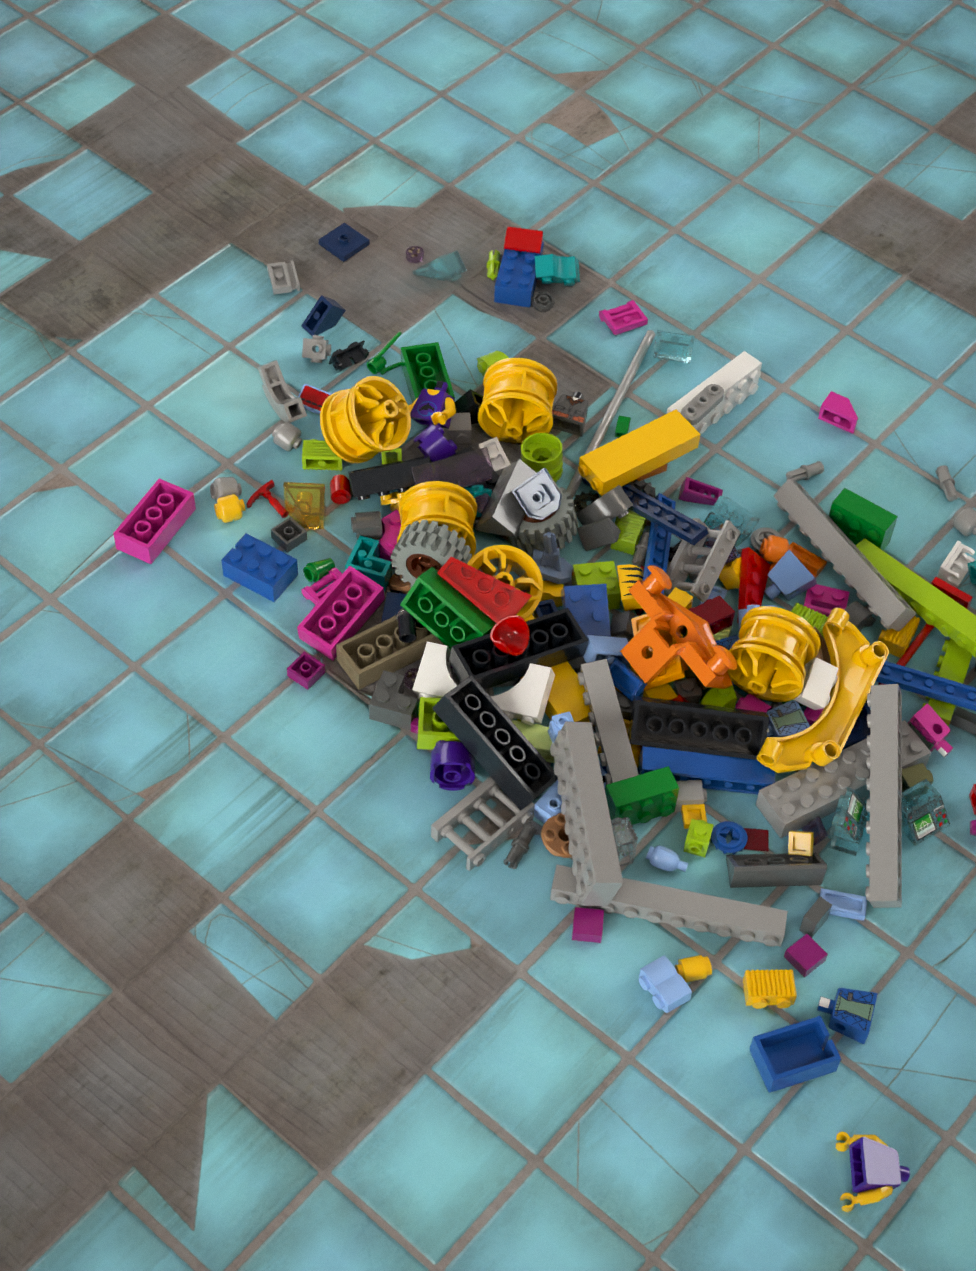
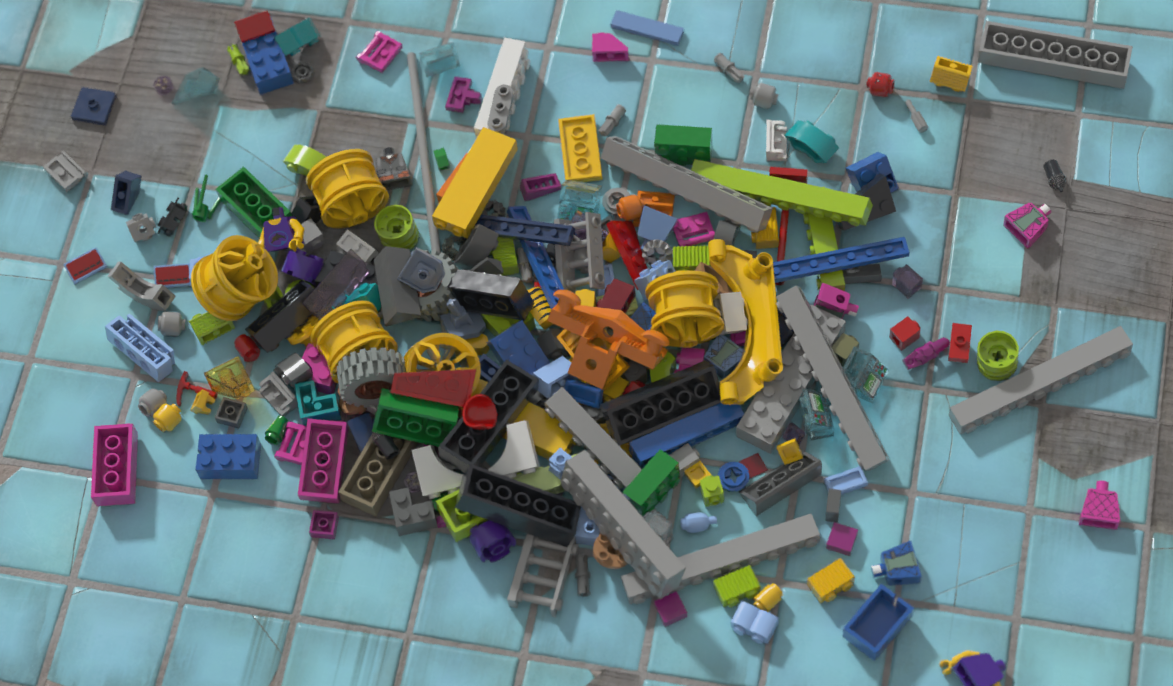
camera: 20 degrees left, 10 degrees up
(247, 355) = (85, 265): none -> red slope
(248, 440) = (141, 346): none -> light blue brick
(270, 509) = (200, 401): none -> yellow tile
(340, 540) = (278, 394): none -> light grey hinge
(481, 502) = (375, 298): slope -> none
(591, 548) = (491, 294): none -> black brick
(668, 939) = (736, 586): none -> lime brick
(674, 384) = (462, 95): none -> magenta hinge
(759, 480) = (580, 148): none -> yellow plate
(783, 594) = (661, 247): none -> light grey gear
(887, 414) = (647, 27): none -> medium blue tile

